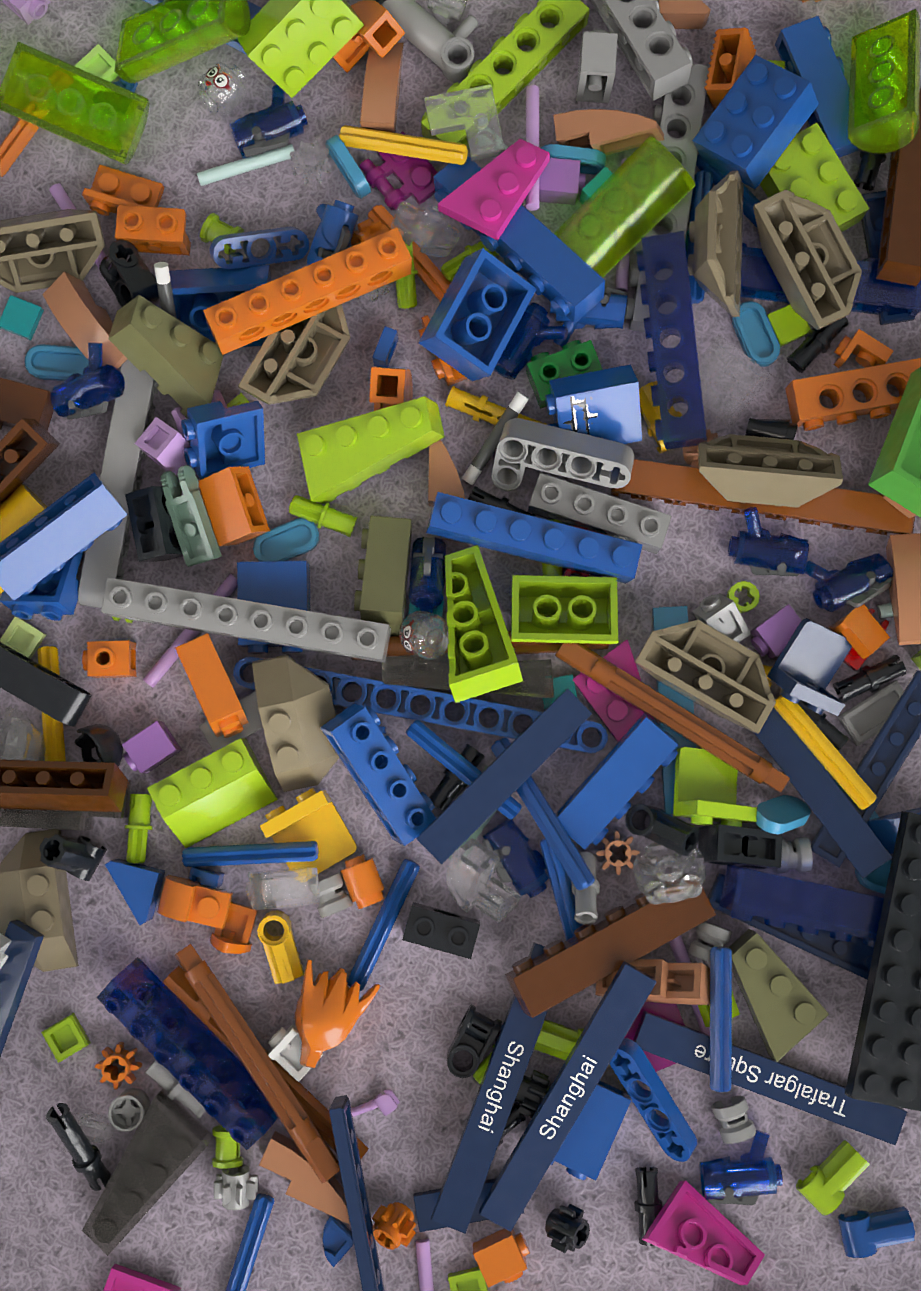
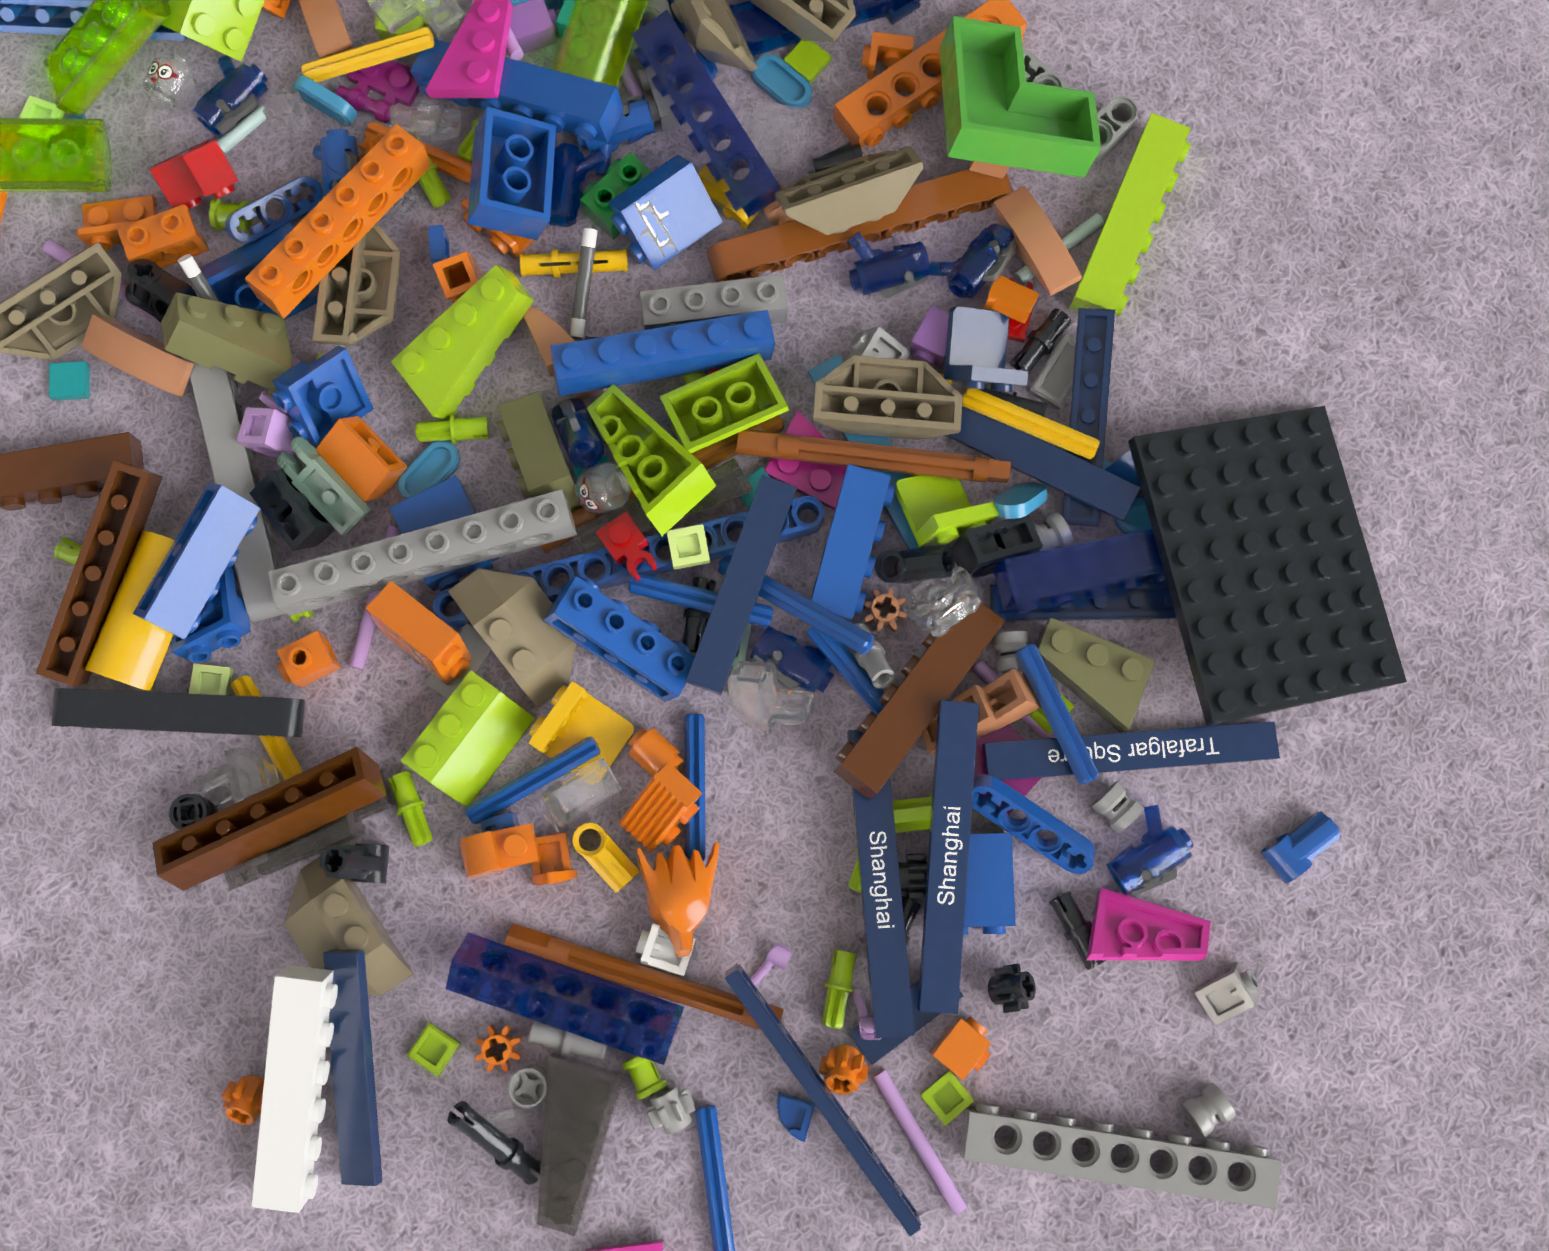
camera: 30 degrees left, 5 degrees down
(55, 362) = (127, 406): dark azure tile -> none
(91, 391) = (170, 414): clear blue piece -> none
(104, 739) = (331, 740): black hair -> none
(138, 886) = (438, 863): blue slope -> none
(150, 748) = (386, 725): medium lavender brick -> none
(207, 184) = (195, 173): none -> red brick
(258, 1064) = (635, 974): dark orange piece -> none
(287, 1160) = (737, 1064): nougat slope -> none
(332, 896) = (630, 779): light grey wheel -> none
(345, 934) = (660, 808): none -> orange brick
(422, 690) = (626, 542): none -> red plate
(422, 1154) = (838, 988): none -> lime axle
(430, 1197) = (865, 1022): none -> lavender hand
(441, 930) = (753, 762): black brick -> none
(473, 1040) = (833, 853): black piece -> none
(474, 720) = (688, 546): none -> yellowish green tile
(604, 463) = (656, 271): light grey beam -> none
(752, 593) = (894, 315): lime bush -> none
(815, 343) = (841, 63): black pin -> none
(830, 1179) = (1234, 822): lime piece -> none

